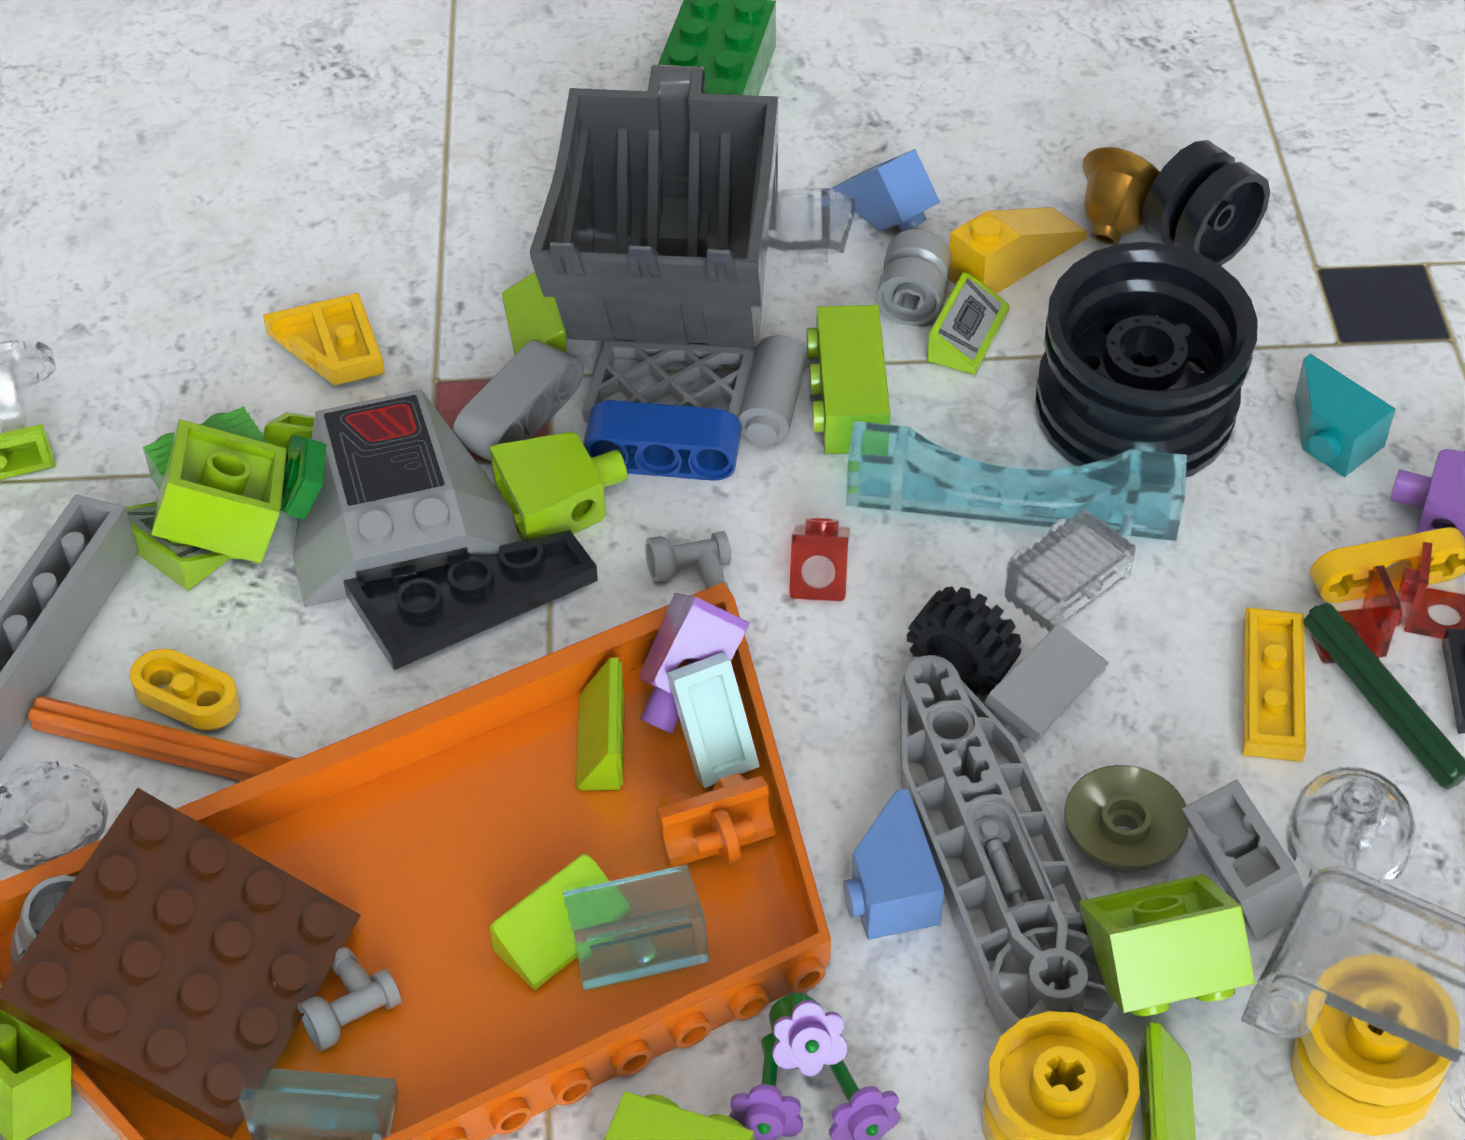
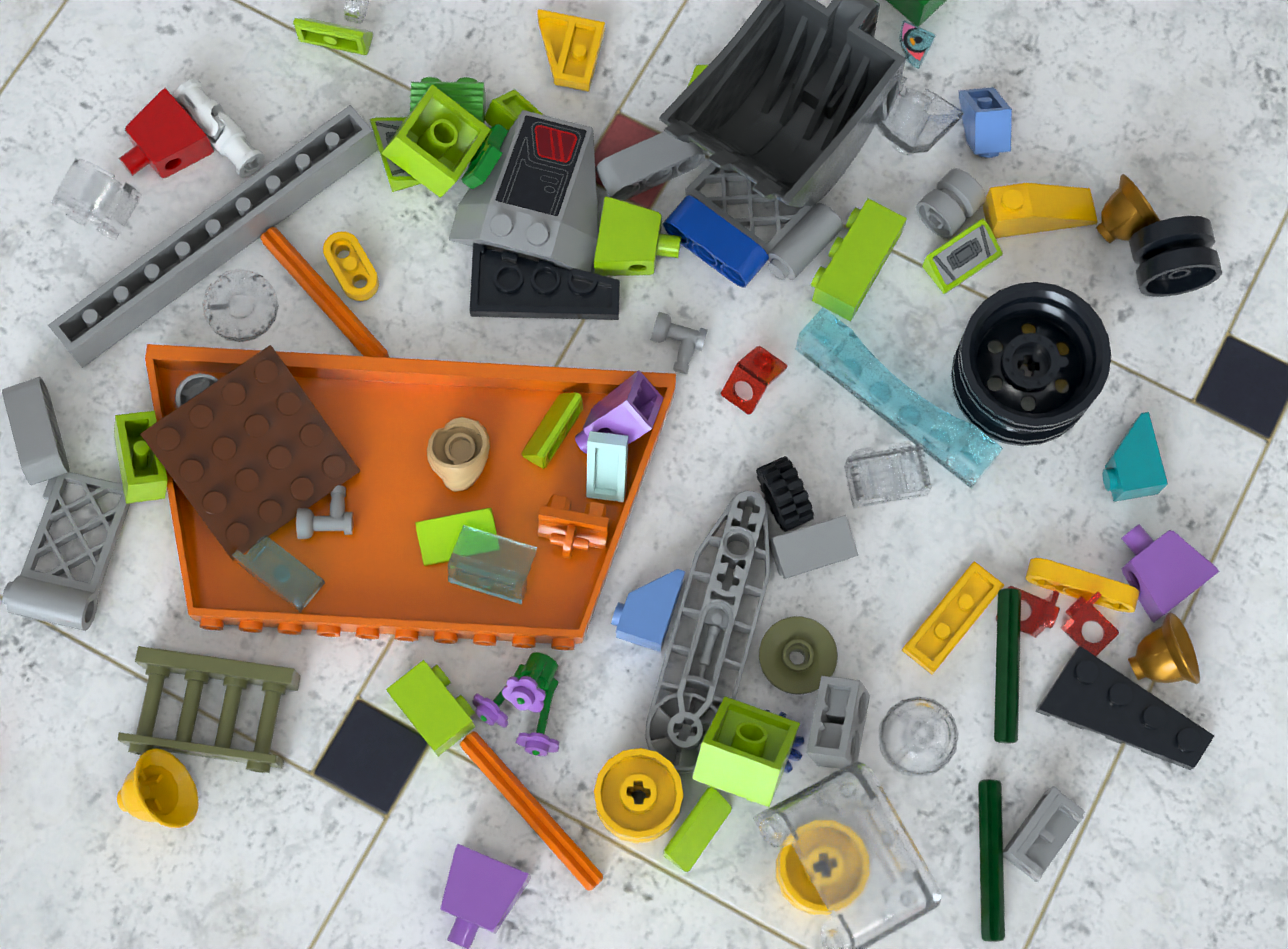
camera: 30 degrees right, 25 degrees up
(494, 814) = (459, 452): none -> tan hair

